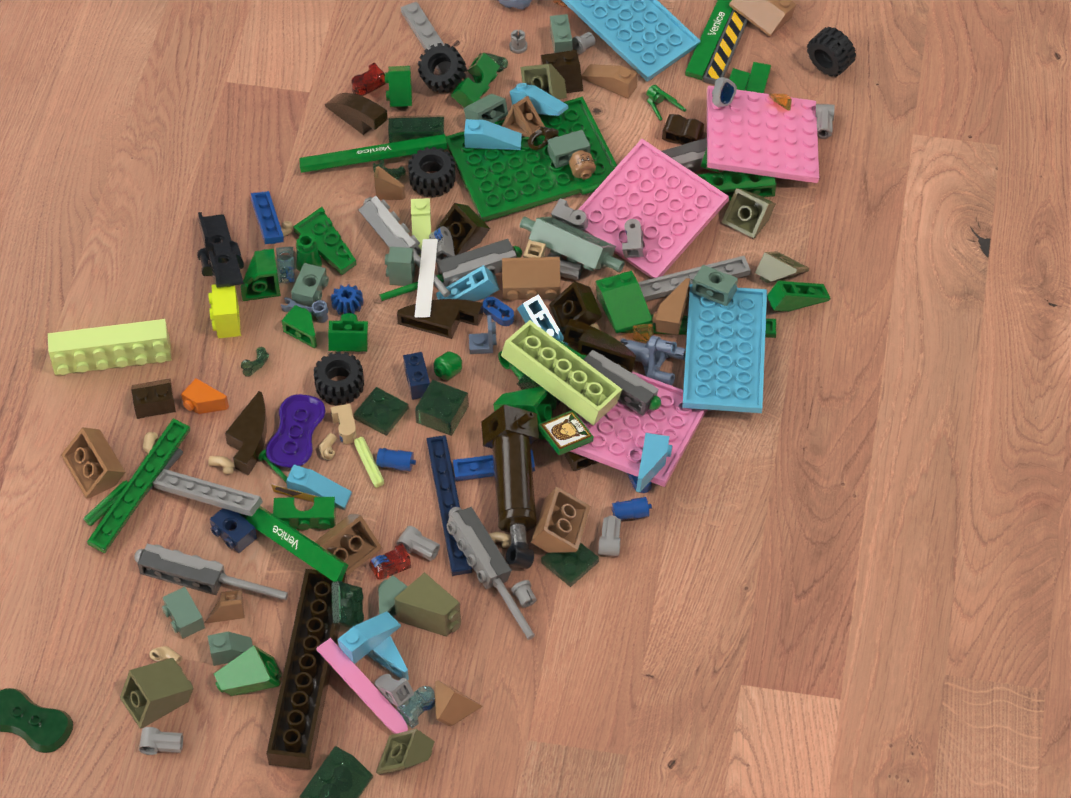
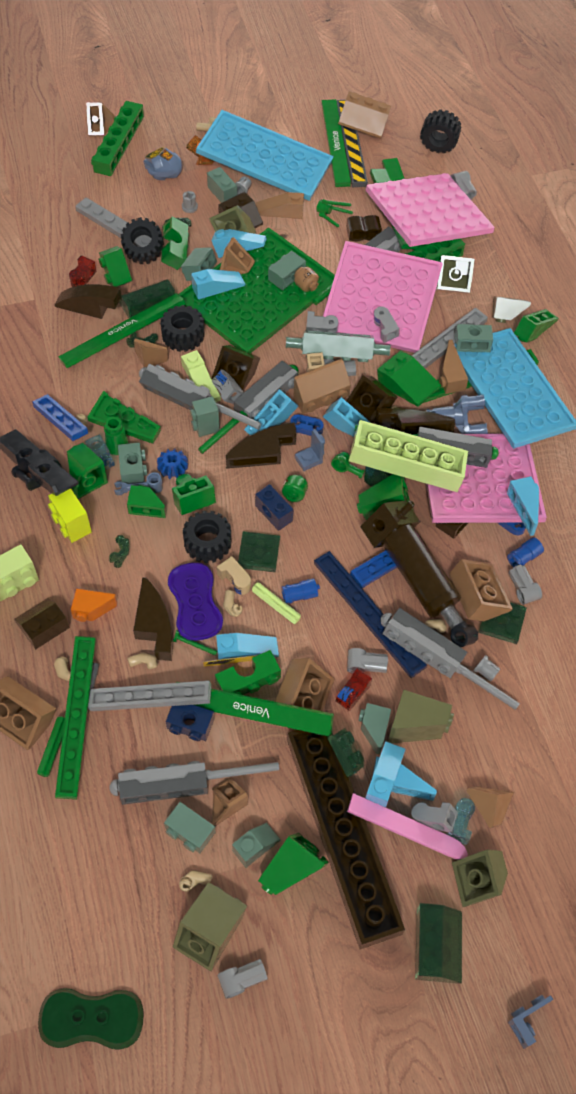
camera: 30 degrees left, 5 degrees up
(426, 278) = (234, 419): white sticker -> none
(441, 407) = (313, 527): clear green brick -> none
(547, 132) = (262, 262): dark brown piece -> none
(565, 432) = (440, 507): tile -> none
(642, 333) = (438, 399): clear yellow slope -> none
(723, 92) = (387, 183): light grey rock -> none
(782, 99) = (431, 178): clear yellow slope -> none

